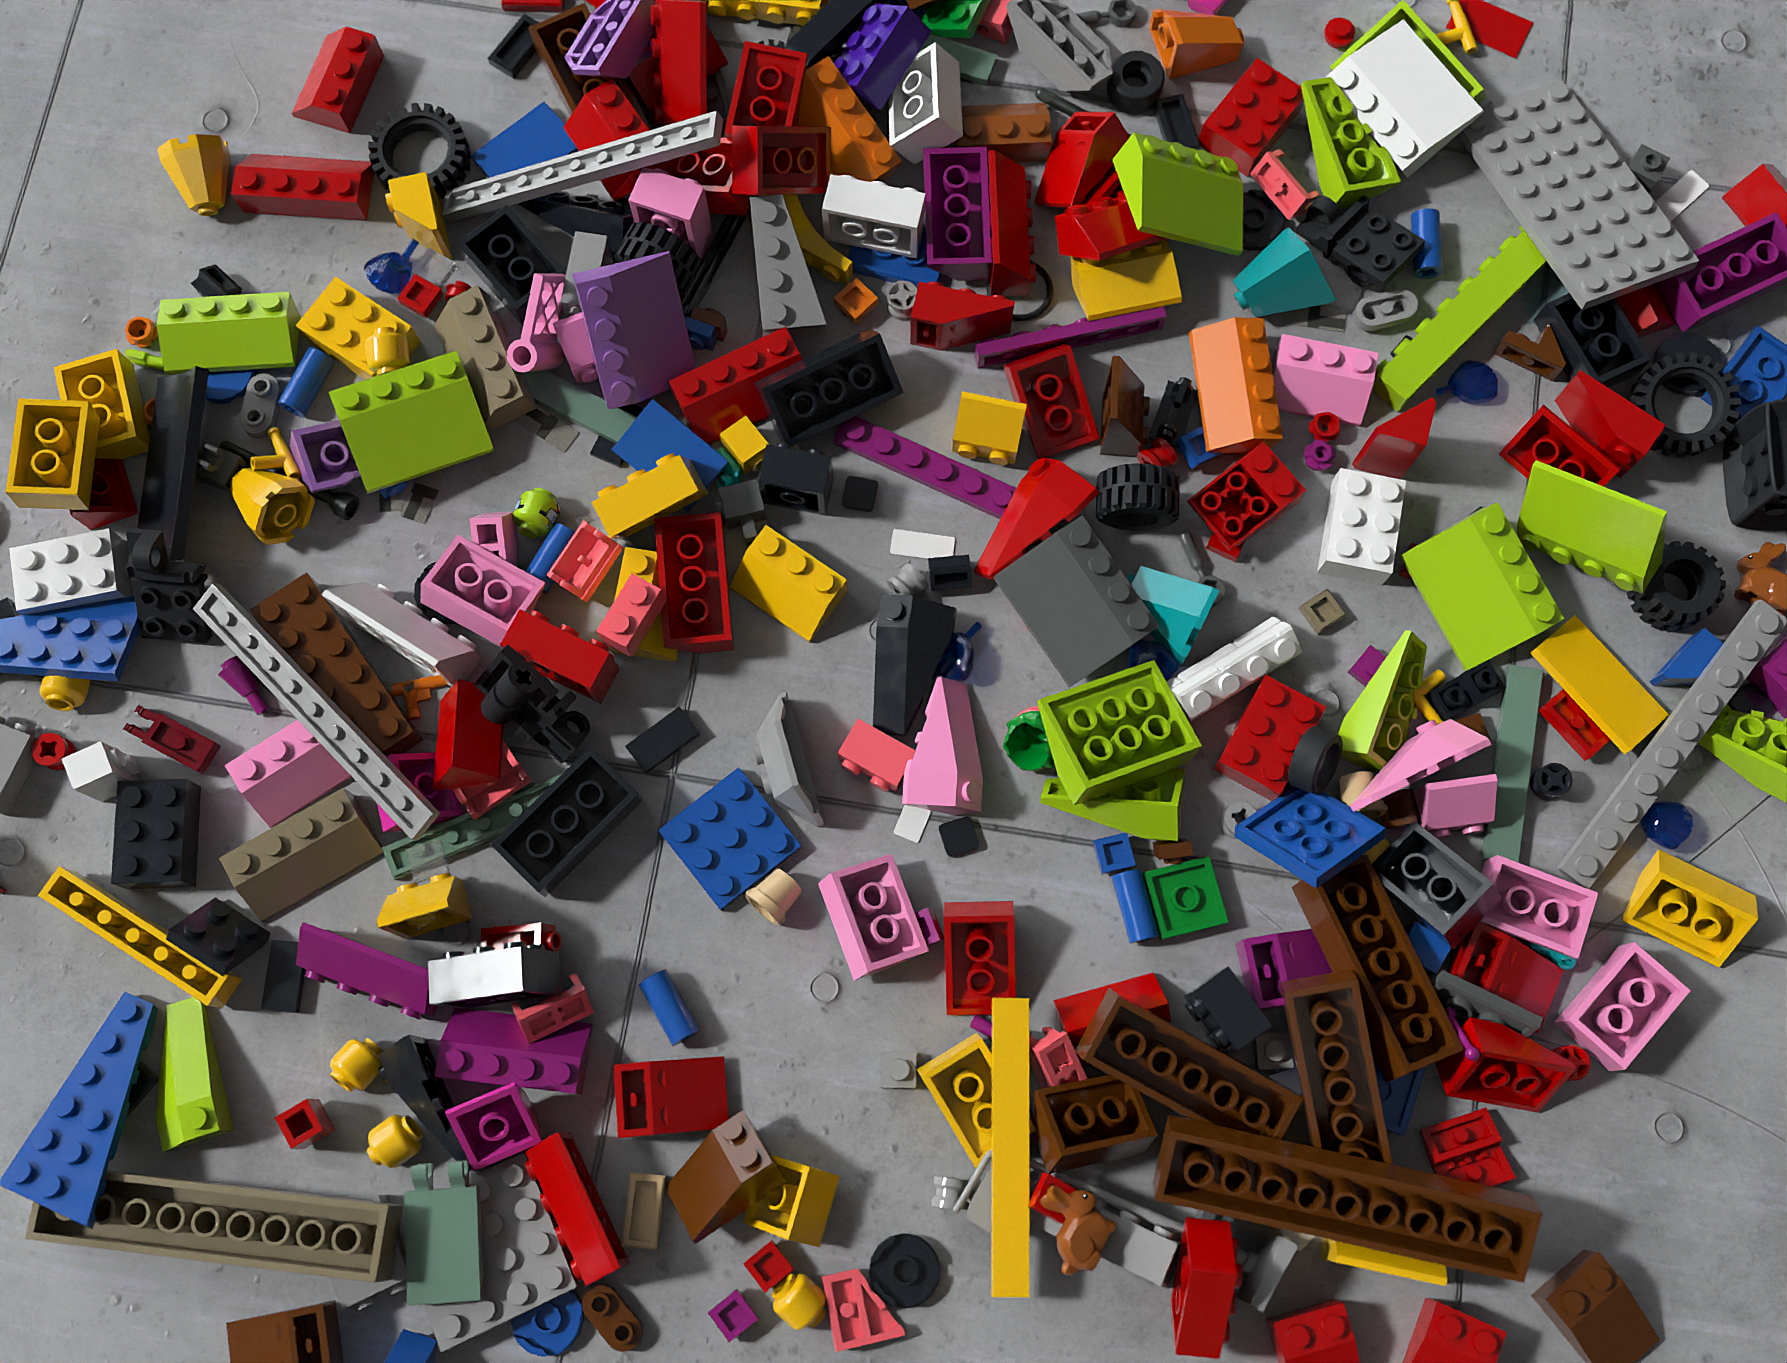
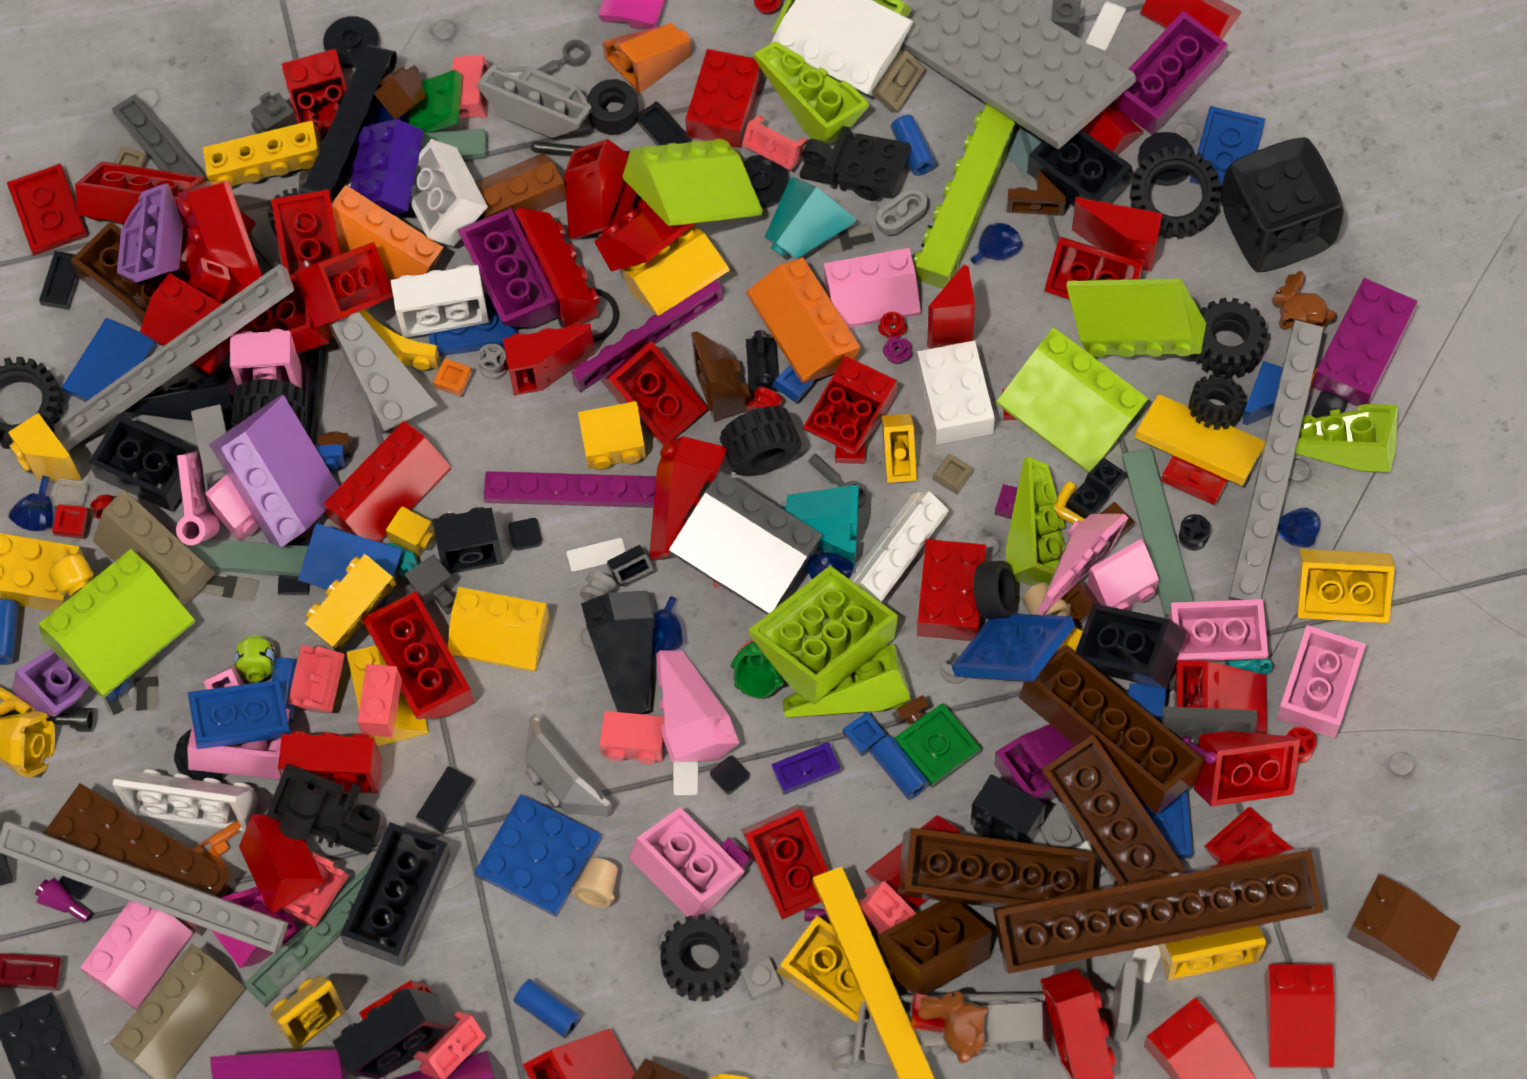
camera: 20 degrees left, 10 degrees down
(487, 568) = (238, 714): none -> blue tile
(652, 101) = (210, 279): none -> red panel
(813, 1019) = (700, 933): none -> black tyre
(829, 387) = (462, 455): black brick -> none
(1038, 864) = (805, 768): none -> dark purple plate
(1278, 561) = (899, 447): none -> yellow slope
(1440, 170) = (898, 81): none -> dark tan plate
(1646, 642) = (1219, 390): none -> black tyre

